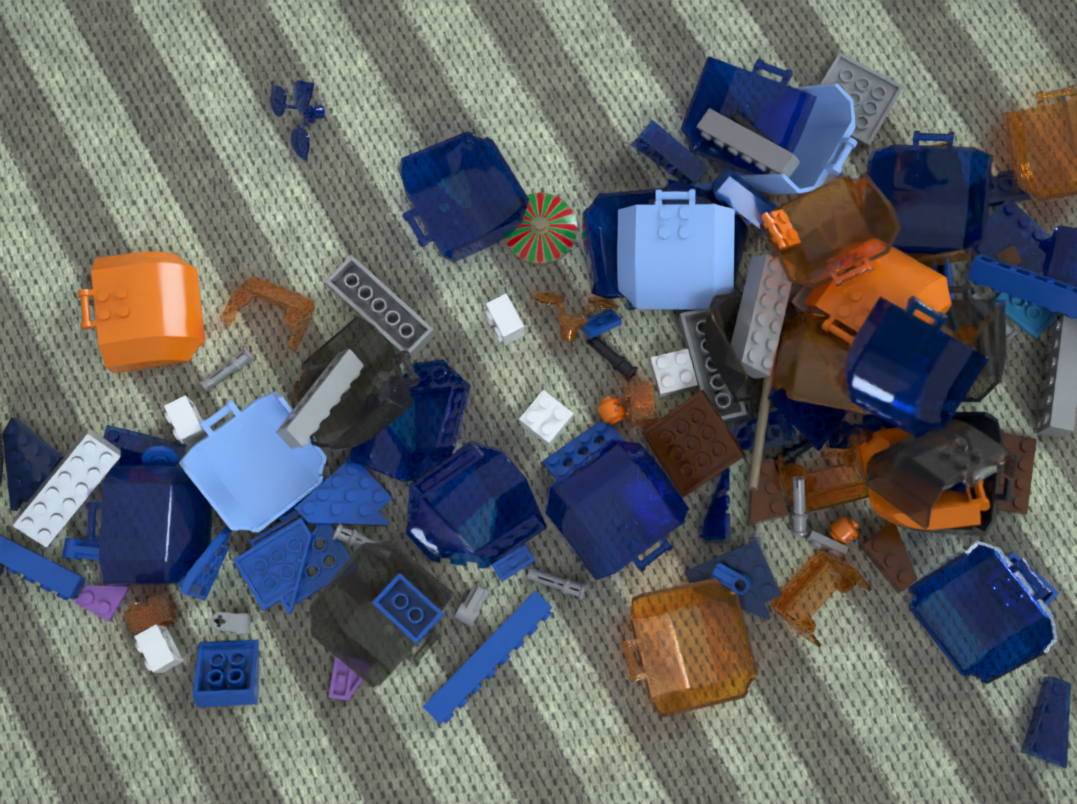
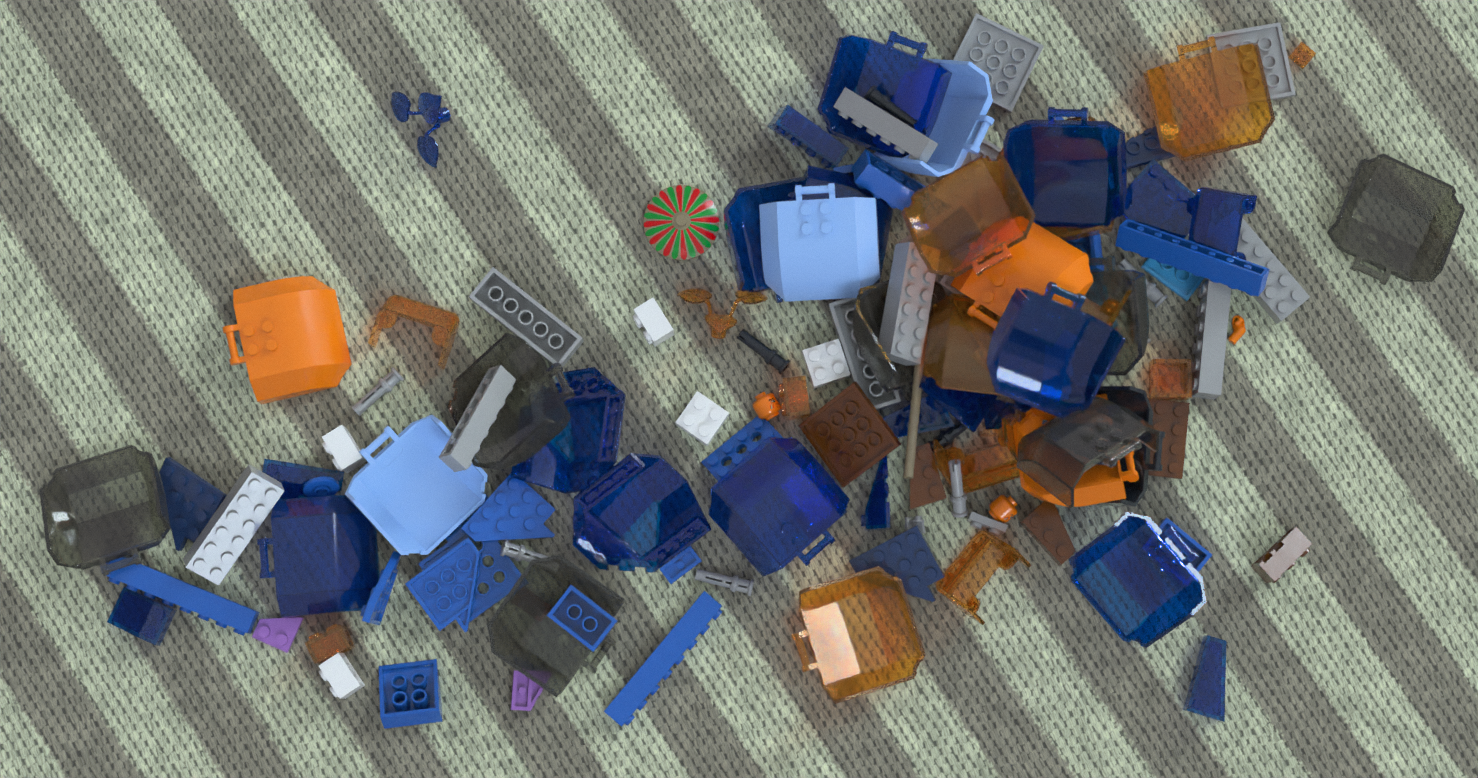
camera: 10 degrees left, 5 degrees up
(79, 550) = (250, 584): blue piece -> none
(234, 622) = (412, 644): light grey piece -> none
(462, 195) = (600, 197): clear blue windscreen -> none
(471, 607) = (642, 613): light grey piece -> none
(601, 323) = (751, 317): blue plate -> none
(730, 577) = (892, 565): blue piece -> none
(780, 229) = (922, 215): orange plate -> none
(1009, 256) = (1155, 220): reddish brown plate -> none
(1019, 413) = (1170, 379): none -> clear orange brick

